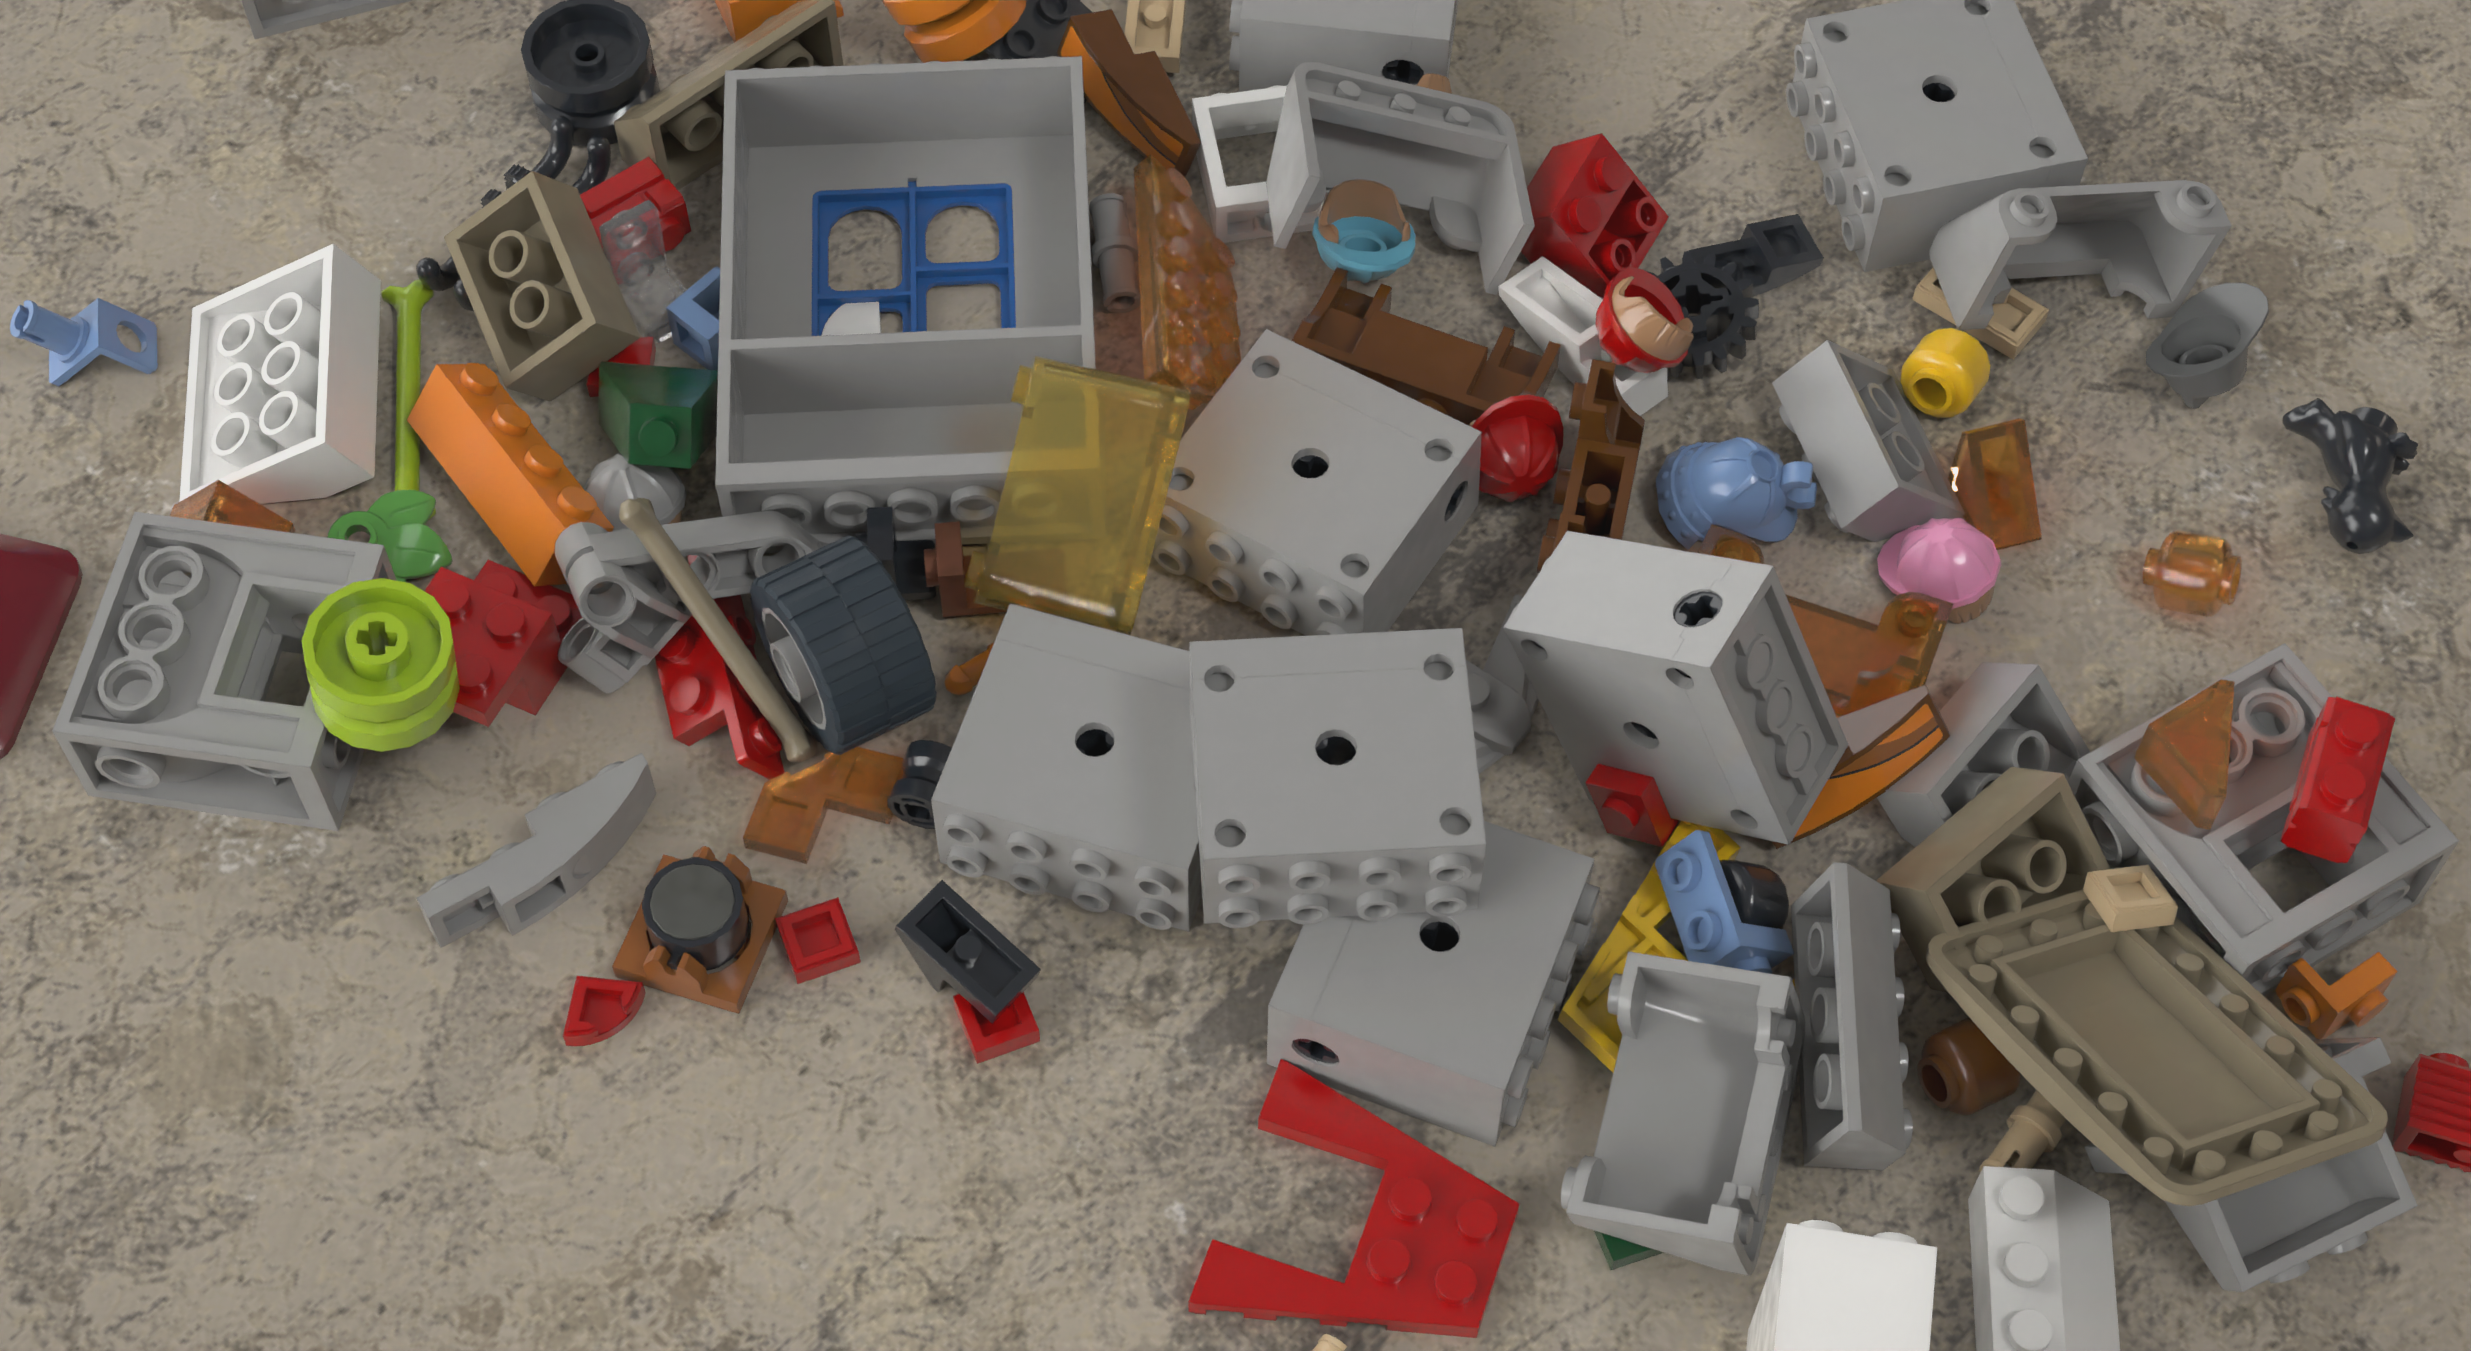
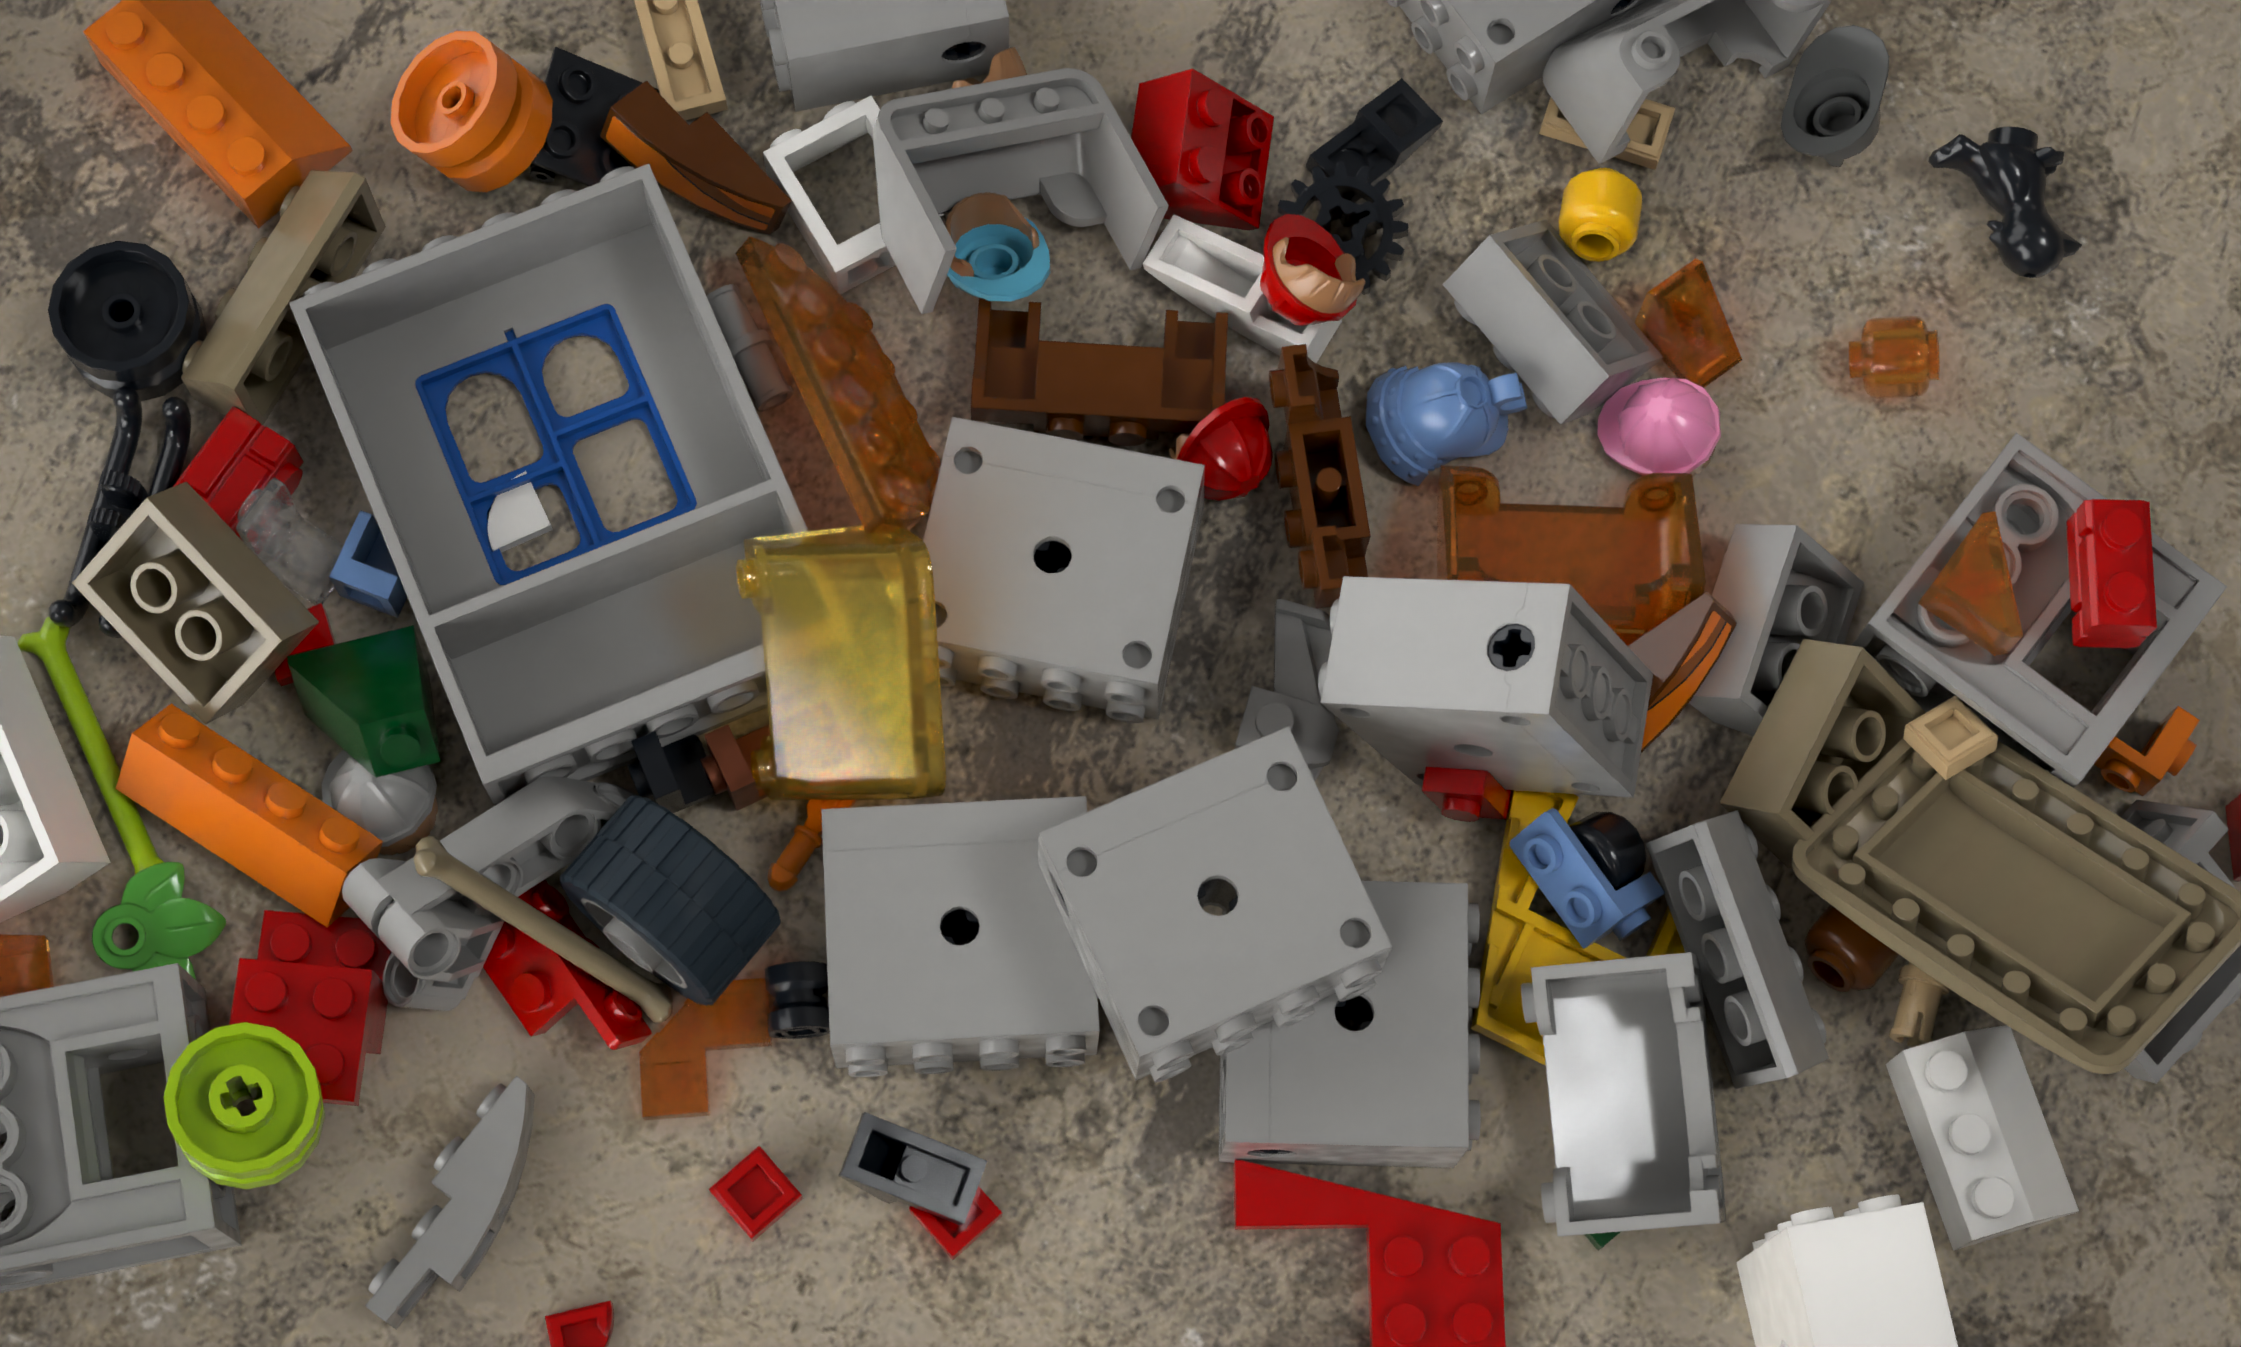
camera: 25 degrees left, 15 degrees up
(697, 923) = (640, 1224): piece -> none

